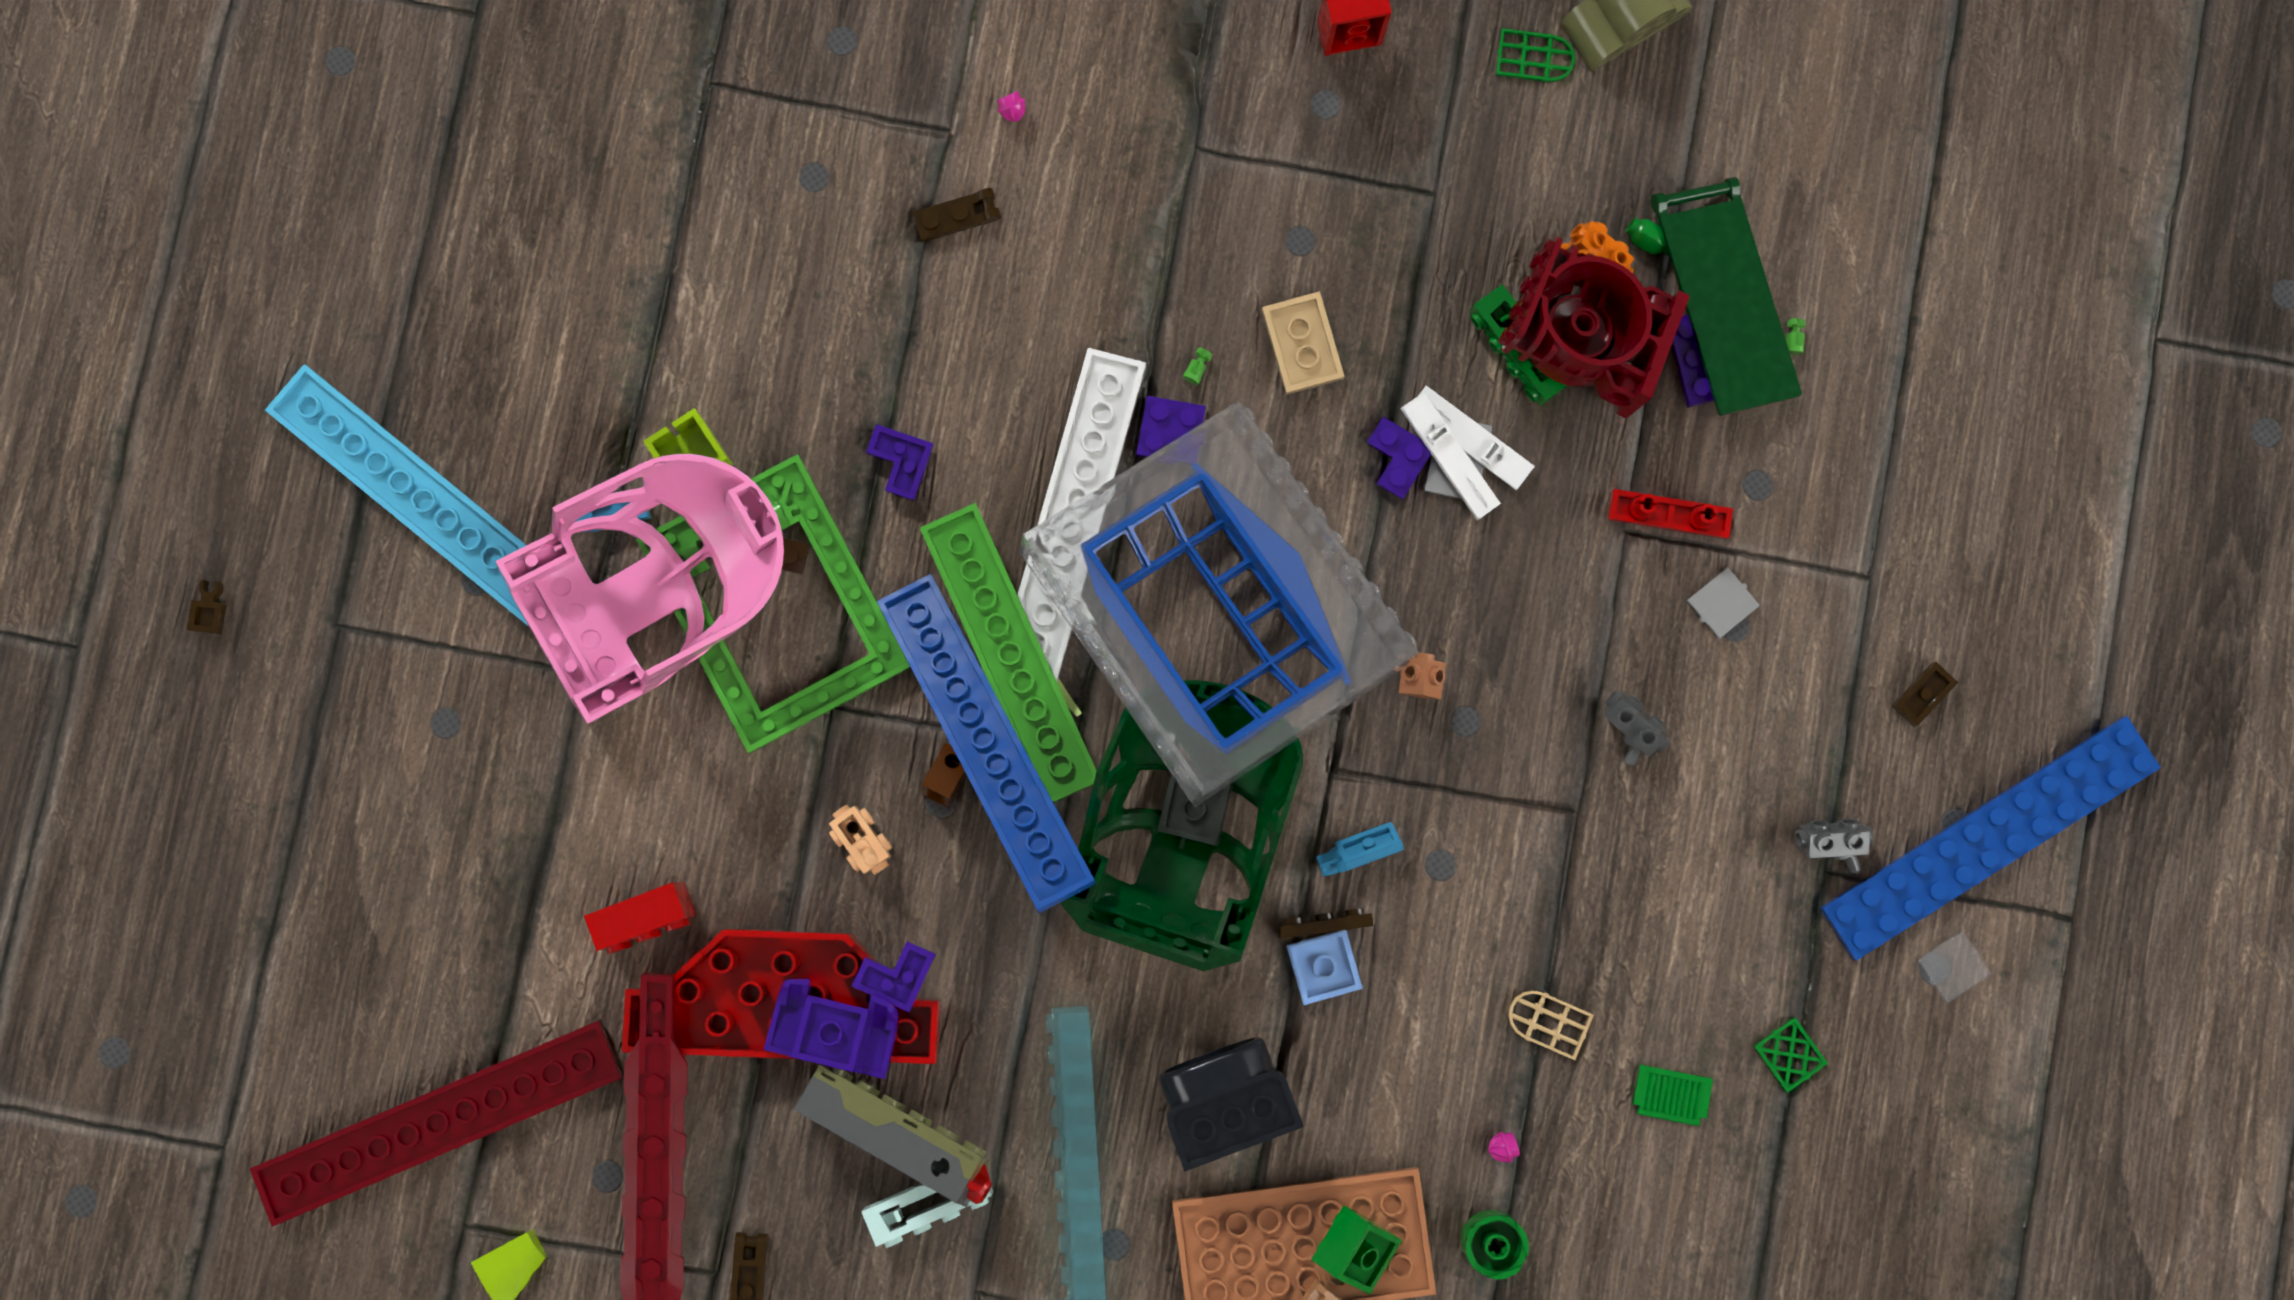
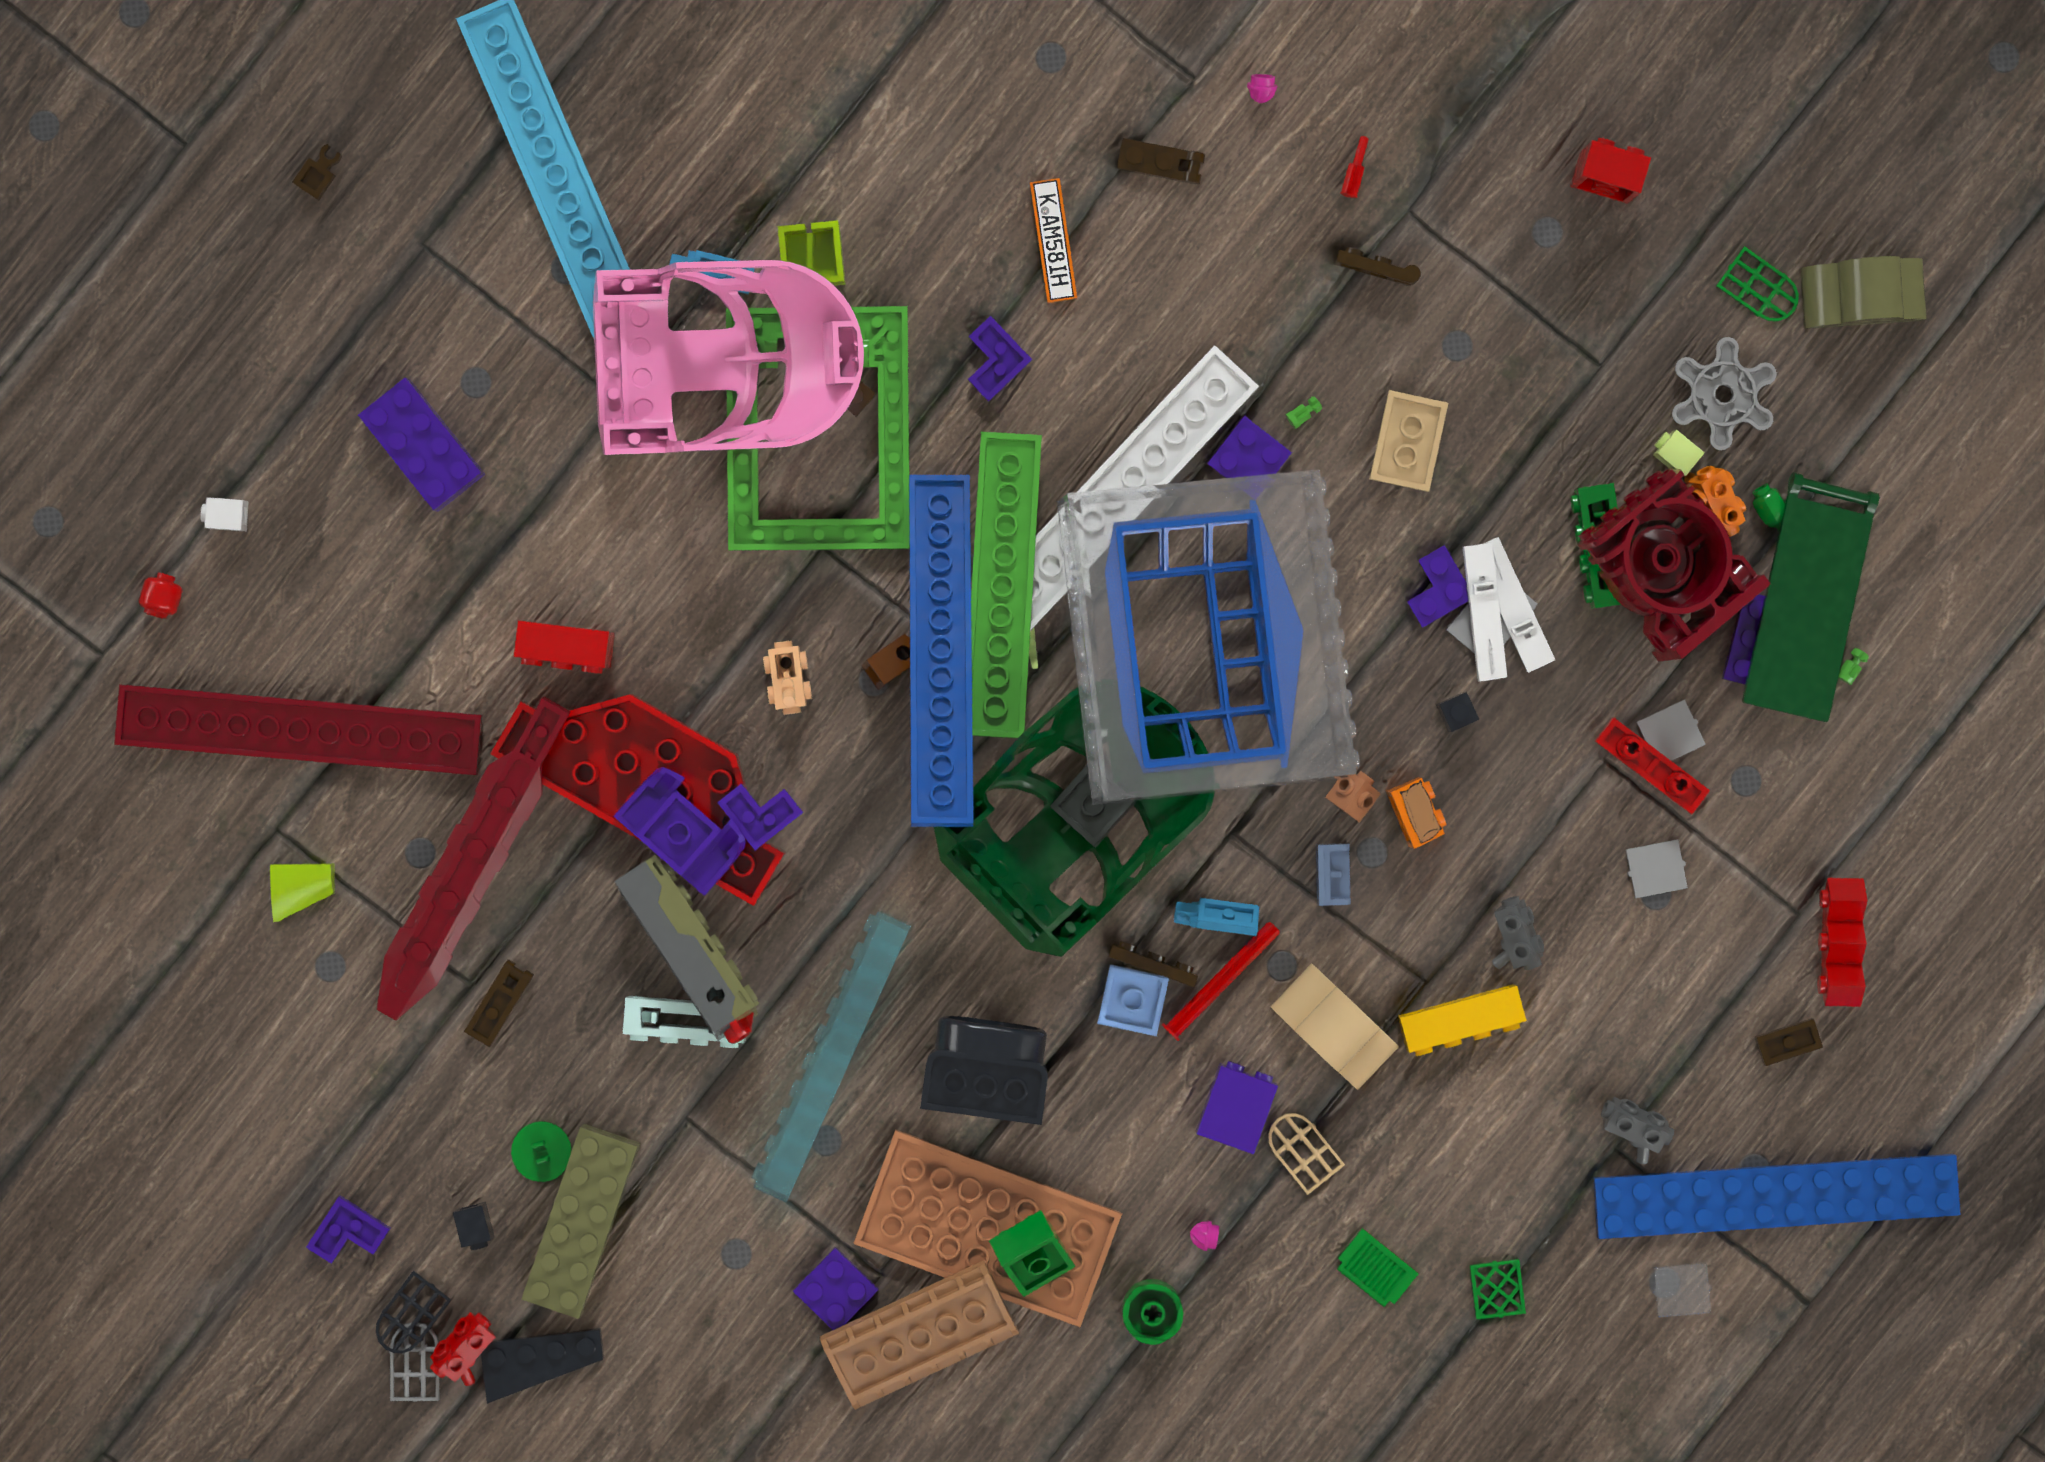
camera: 35 degrees right, 5 degrees up
(248, 1066) = (160, 596): none -> red head
(272, 960) = (225, 514): none -> white brick
(421, 803) = (421, 444): none -> dark purple brick
(898, 331) = (1053, 240): none -> tile
(1131, 137) = (1355, 171): none -> red axle
(1195, 207) = (1379, 267): none -> dark brown plate
(1394, 906) = (1221, 980): none -> red axle
(1441, 759) = (1333, 874): none -> sand blue hinge
(1469, 1014) = (1237, 1107): none -> dark purple brick
(1474, 556) = (1457, 712): none -> black brick
(1486, 664) = (1416, 812): none -> slope
(1517, 893) = (1334, 1026): none -> tan brick
(1540, 227) = (1677, 451): none -> yellowish green brick
(1566, 144) = (1744, 388): none -> light grey plate
(1627, 826) = (1462, 1018): none -> yellow brick
(1670, 474) = (1672, 731): none -> light grey piece
(1923, 580) = (1842, 942): none -> red brick

